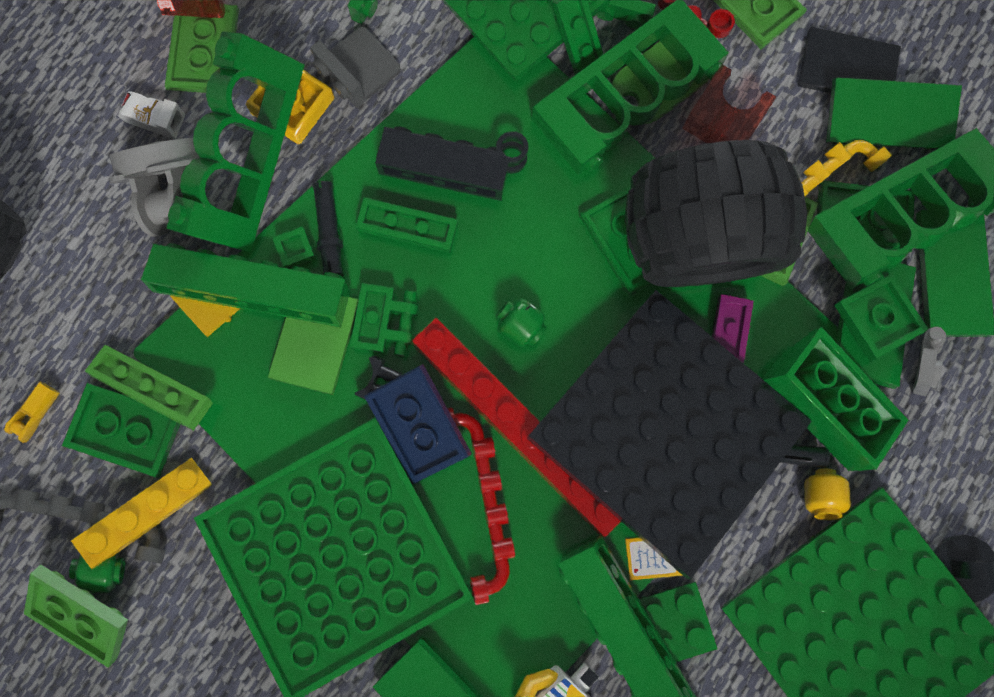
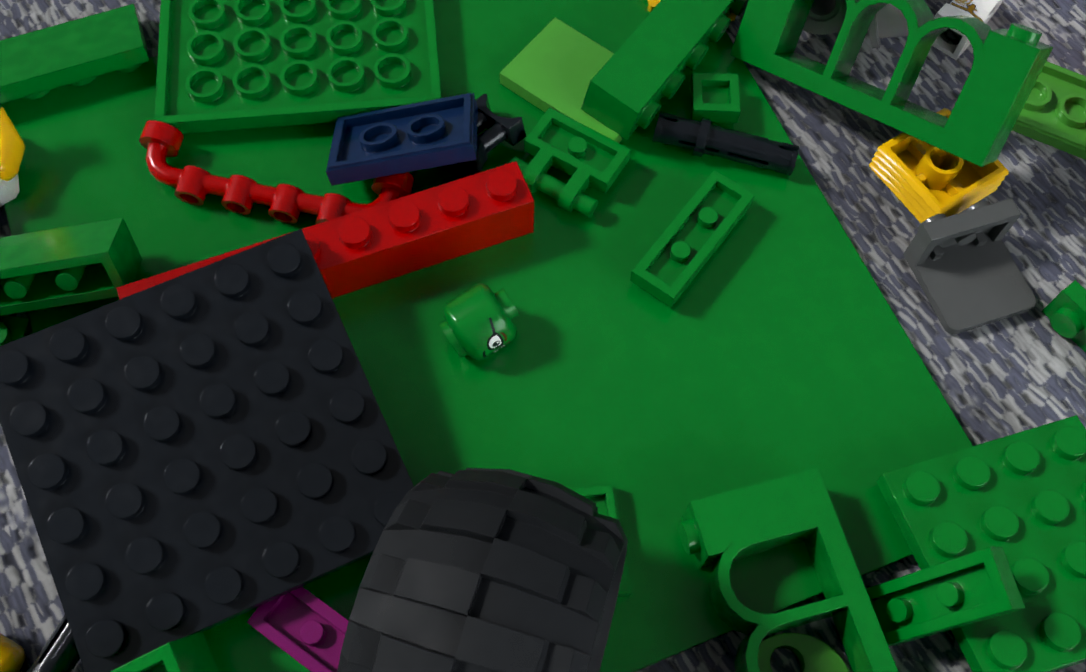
camera: 115 degrees right, 15 degrees down
(448, 163) = (762, 329): black hinge -> none

